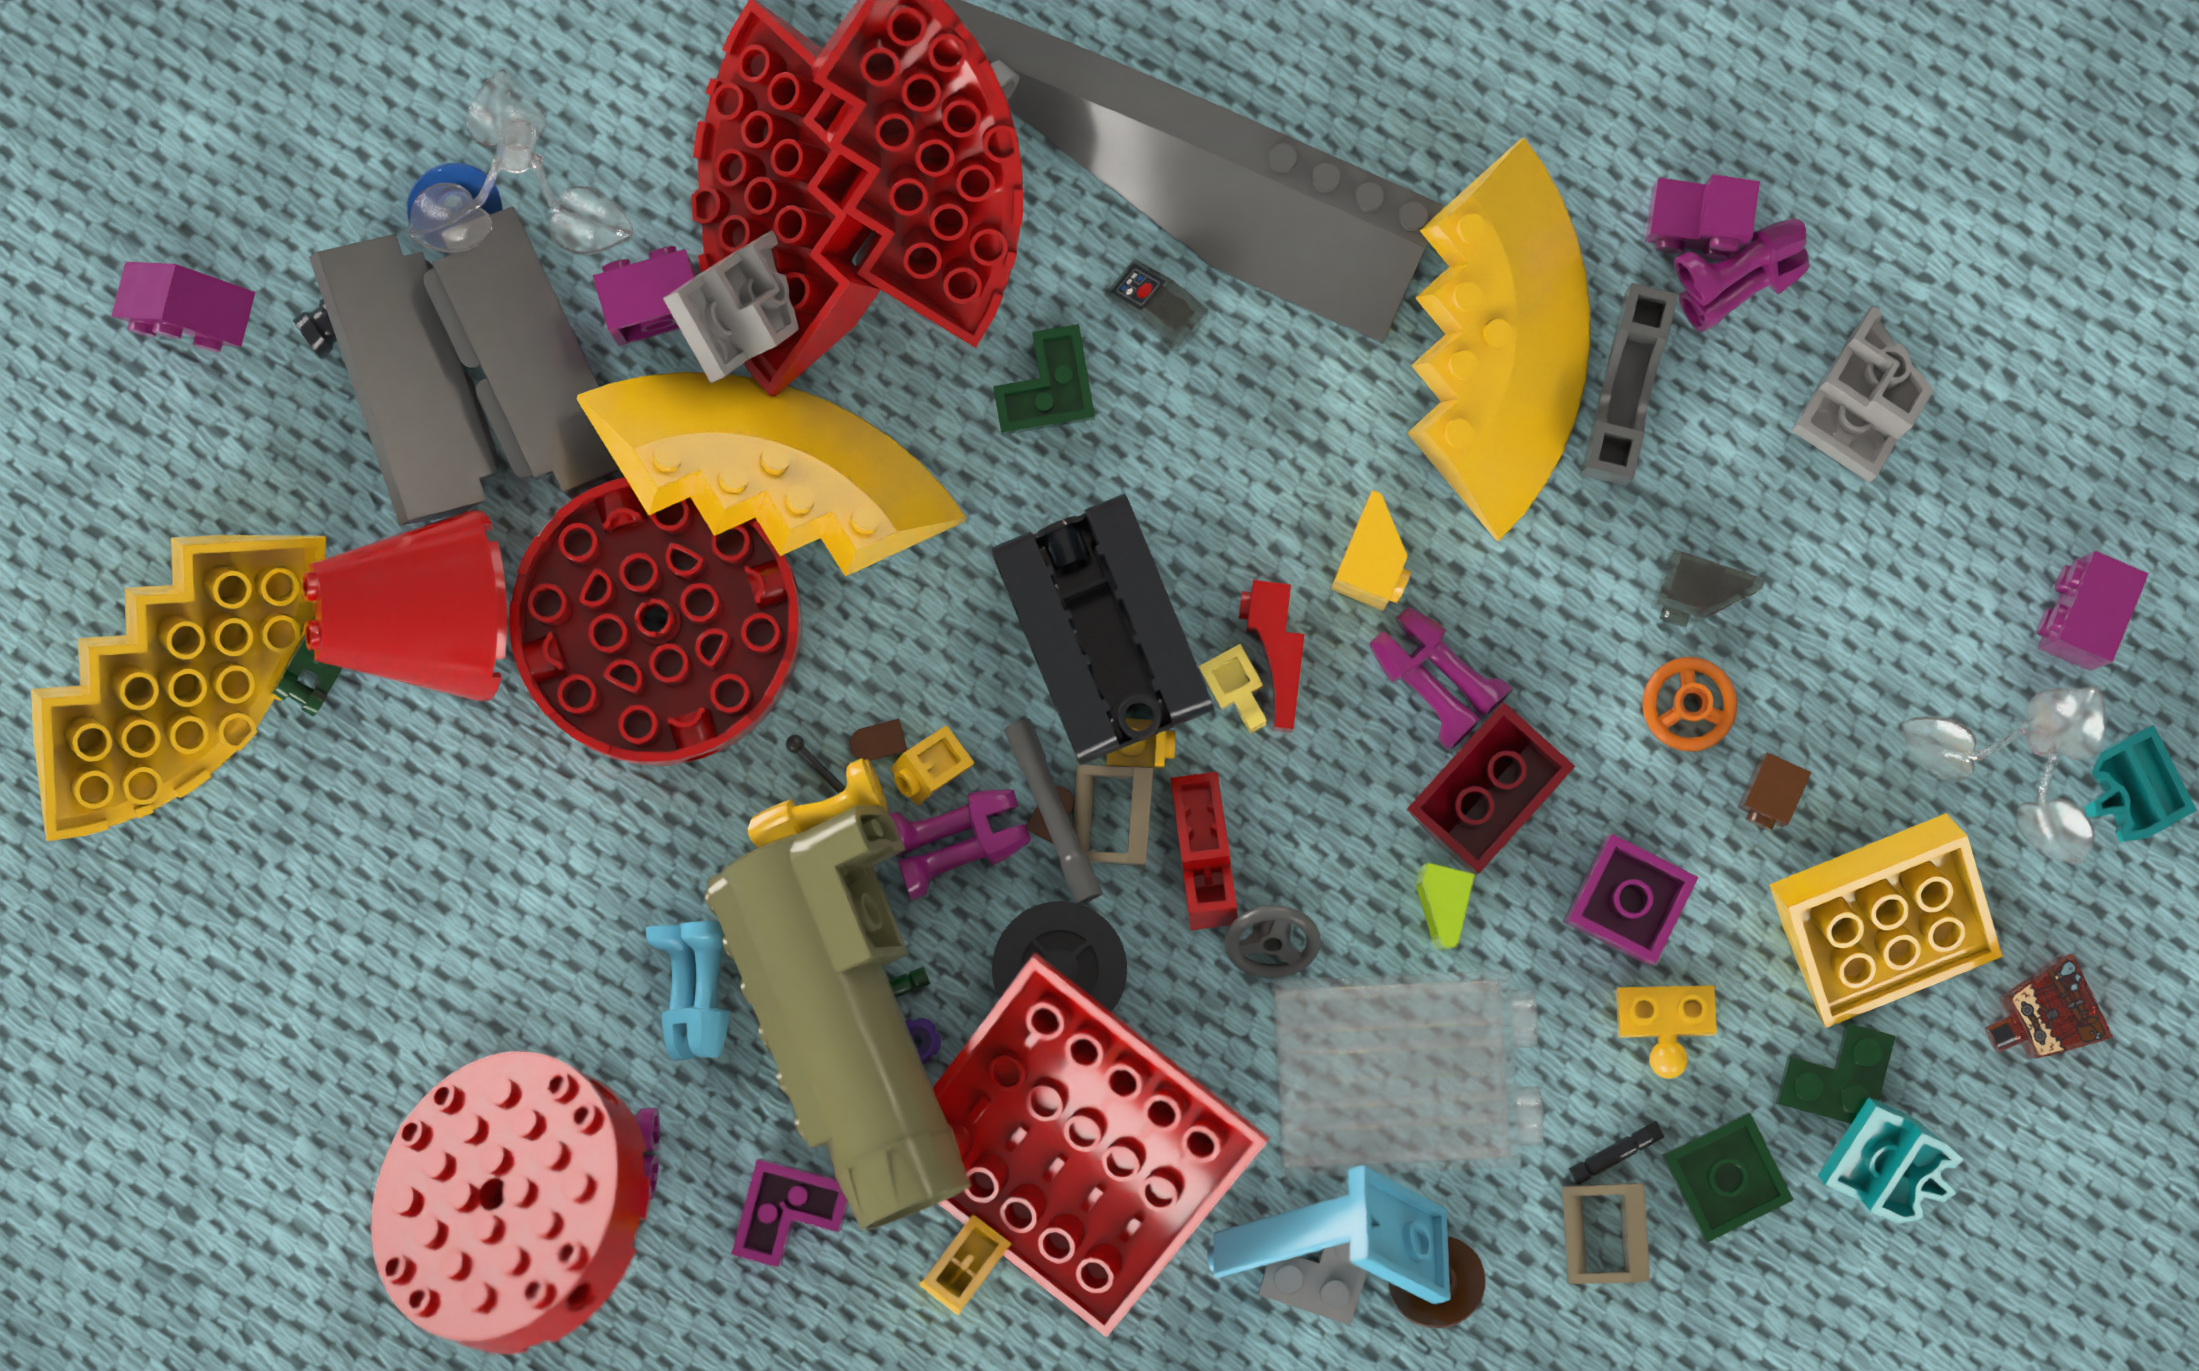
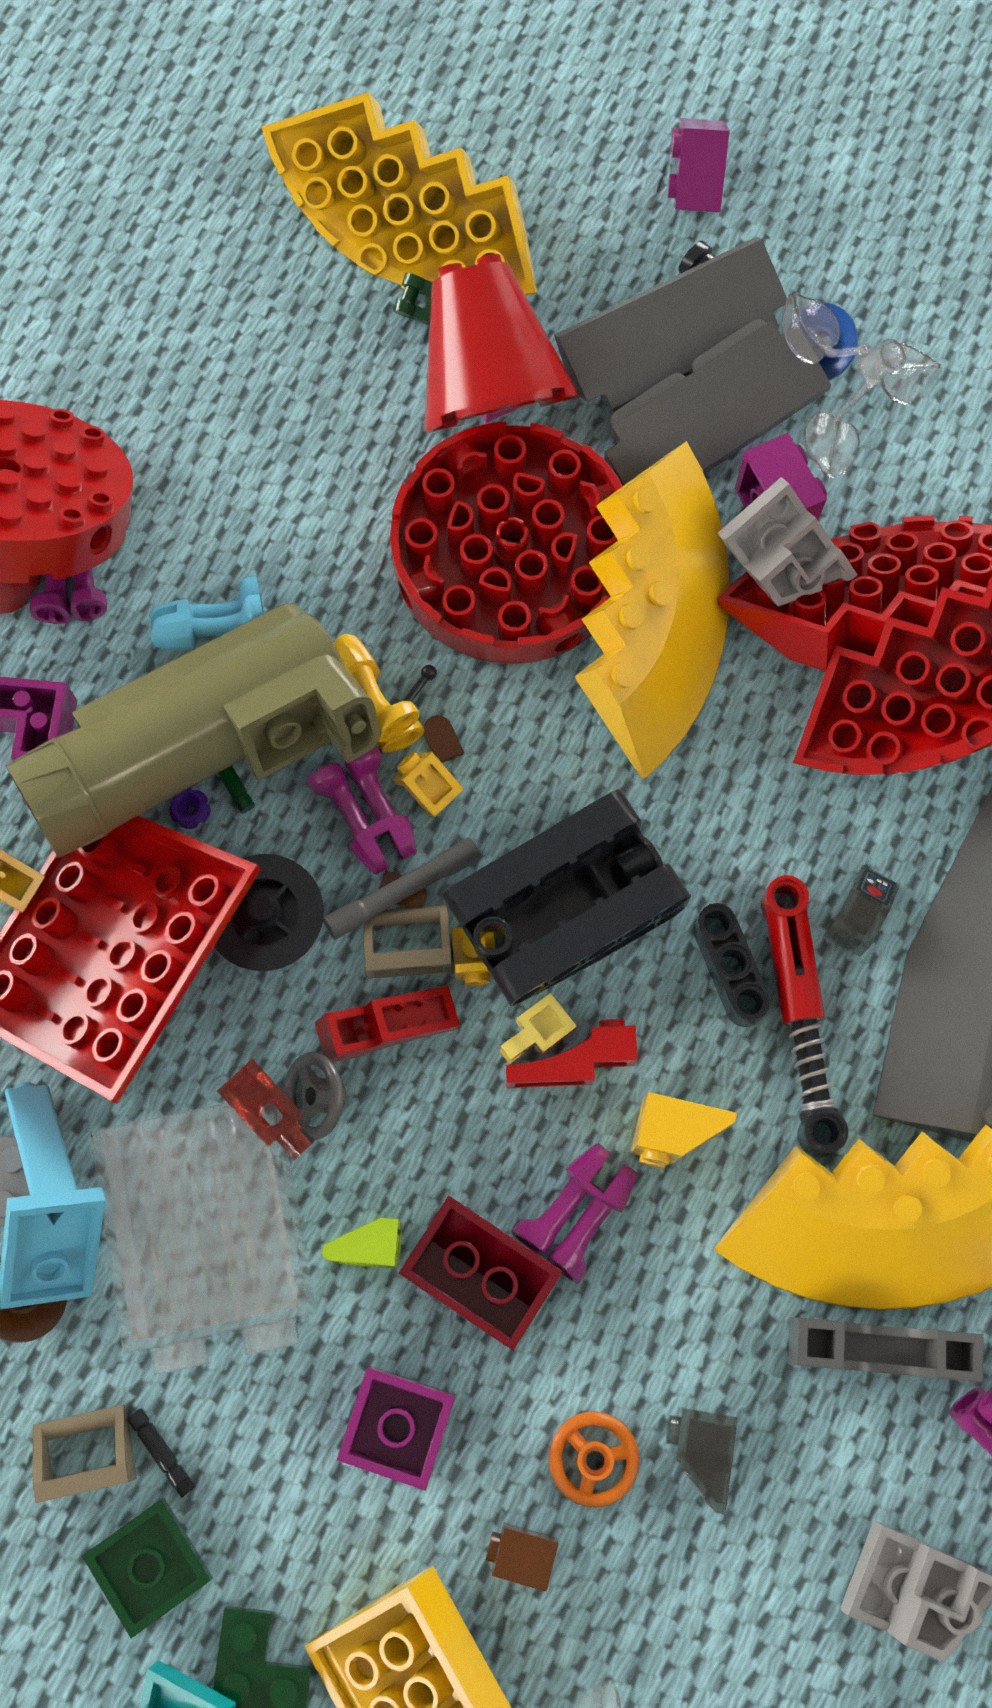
camera: 80 degrees right, 10 degrees down
(1059, 394) = (772, 839): dark green plate -> none
(1216, 447) = (731, 944): none -> black beam
(1257, 396) = (802, 1009): none -> piece
(1282, 990) = (248, 1094): none -> clear red torso
(1666, 1014) = (296, 1482): yellow plate -> none

